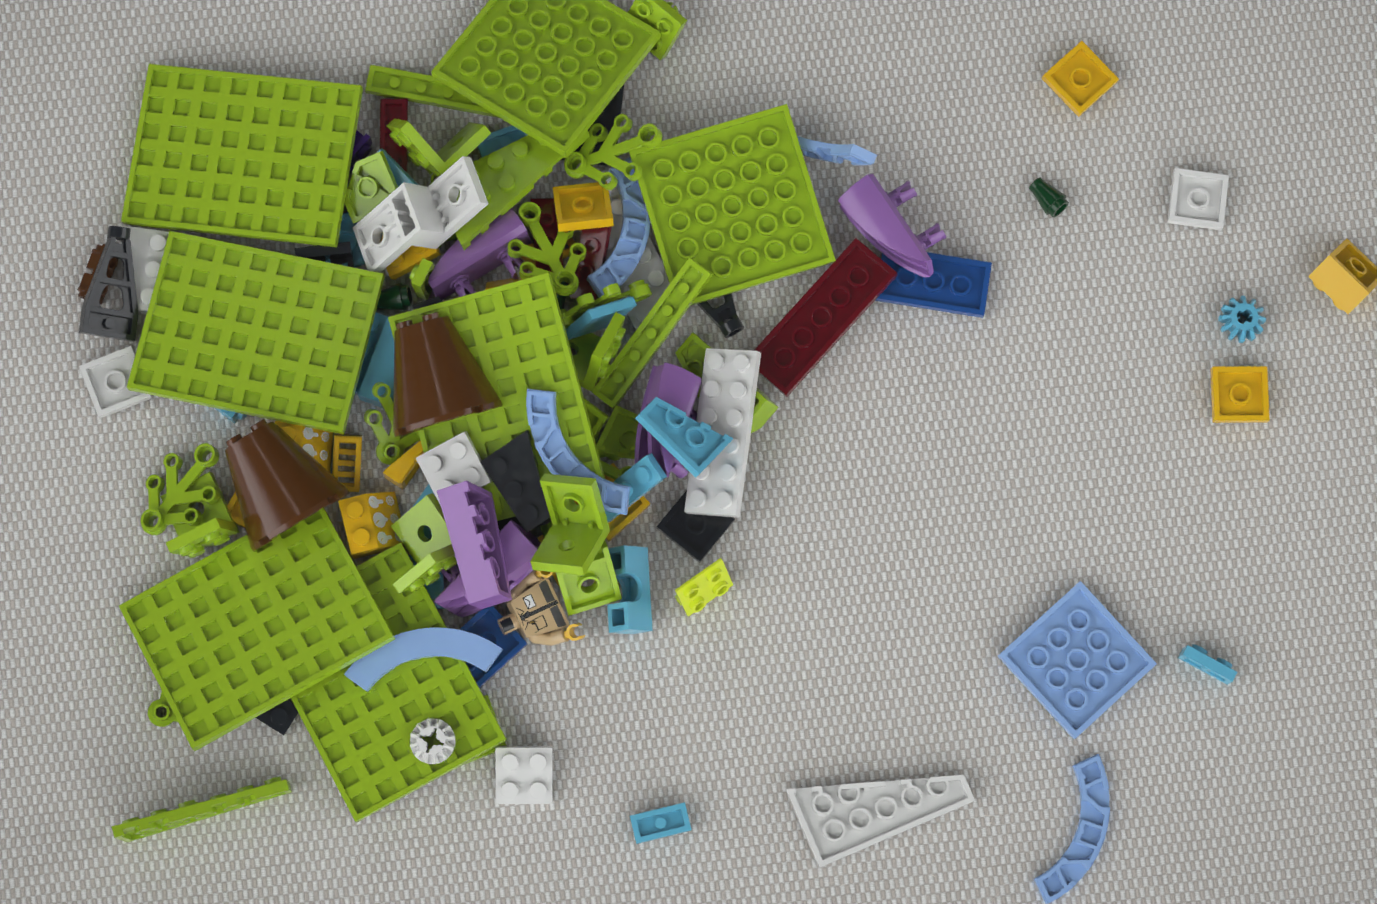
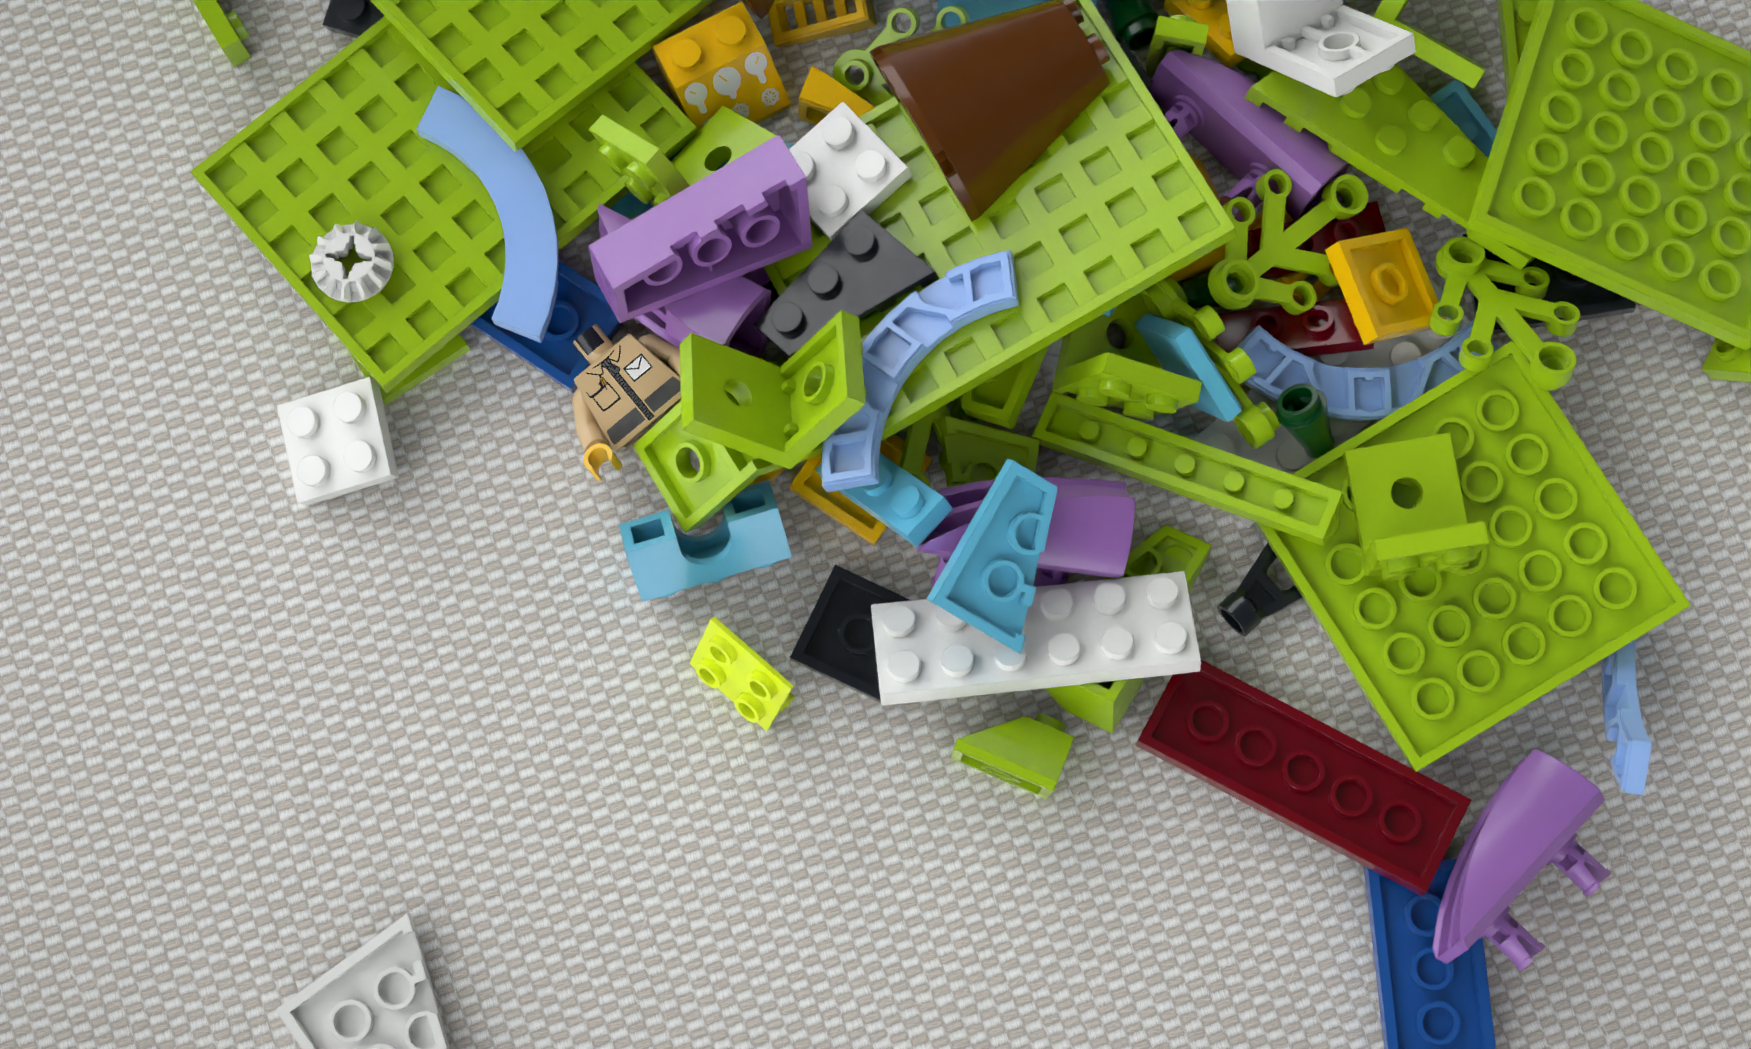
camera: 85 degrees right, 0 degrees up
(643, 265) = (1306, 417): none -> dark green cone
(660, 823) = (301, 701): medium azure plate -> none
(719, 221) = (1404, 539): none -> lime bracket
(778, 454) = (1019, 752): none -> lime slope

